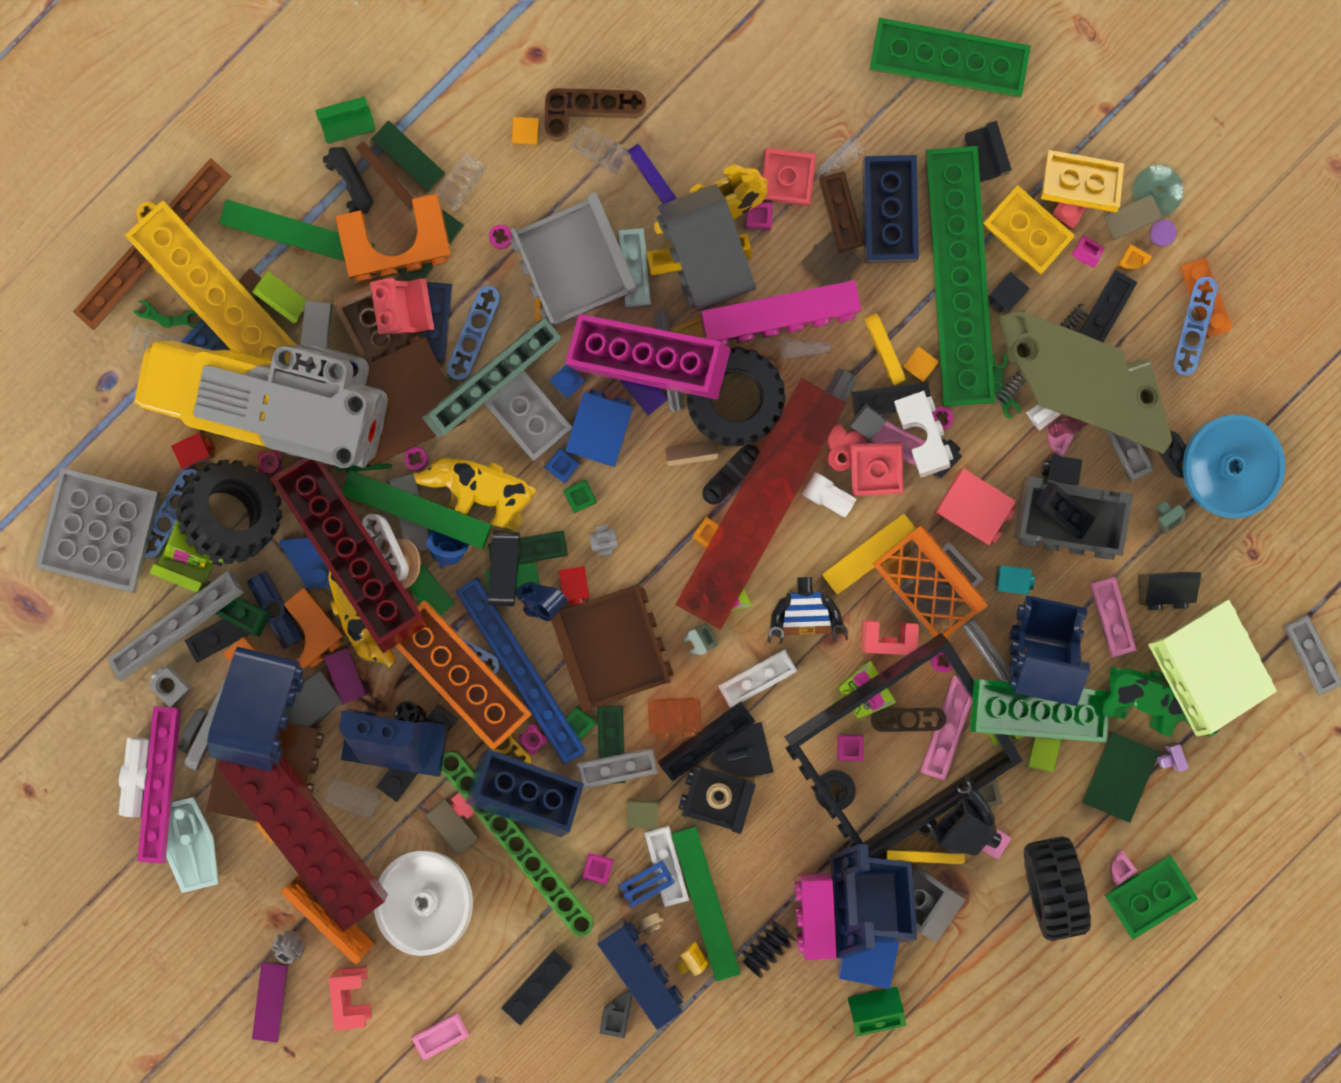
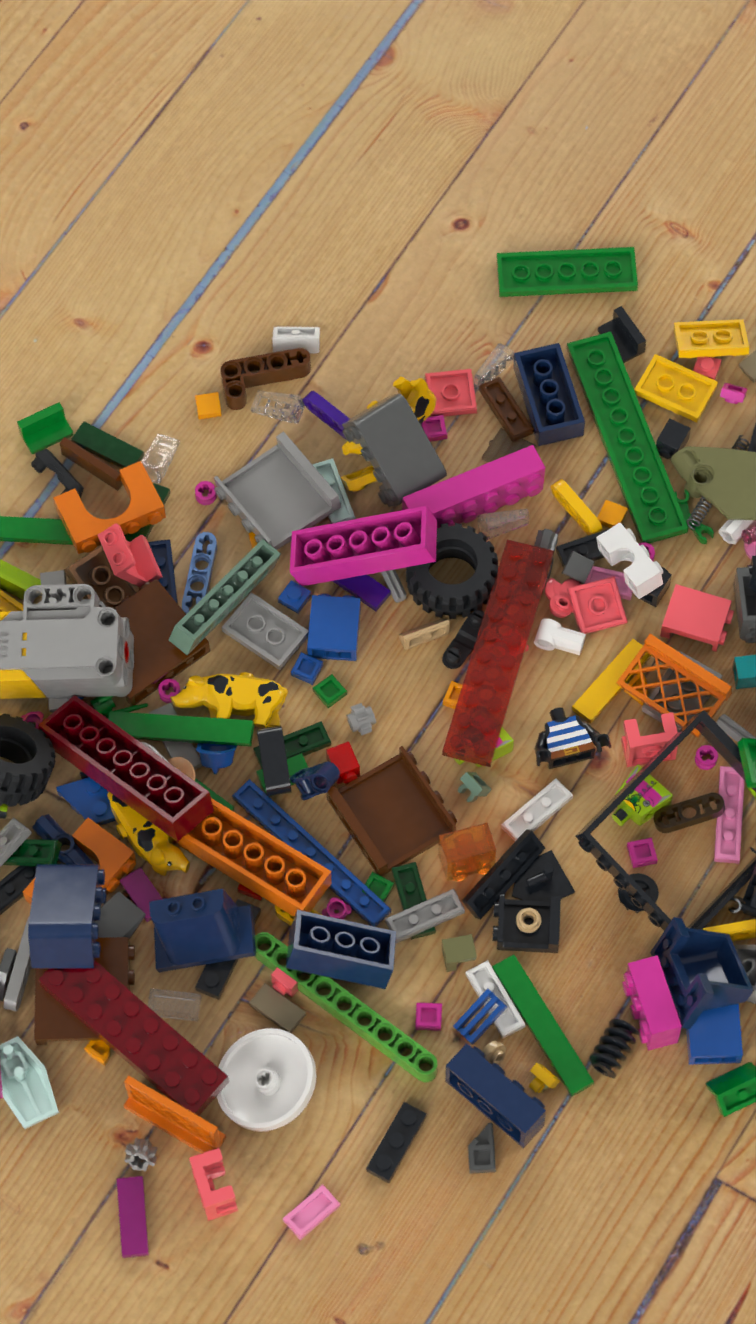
camera: 10 degrees left, 25 degrees down
(637, 70) = (296, 337): none -> white slope

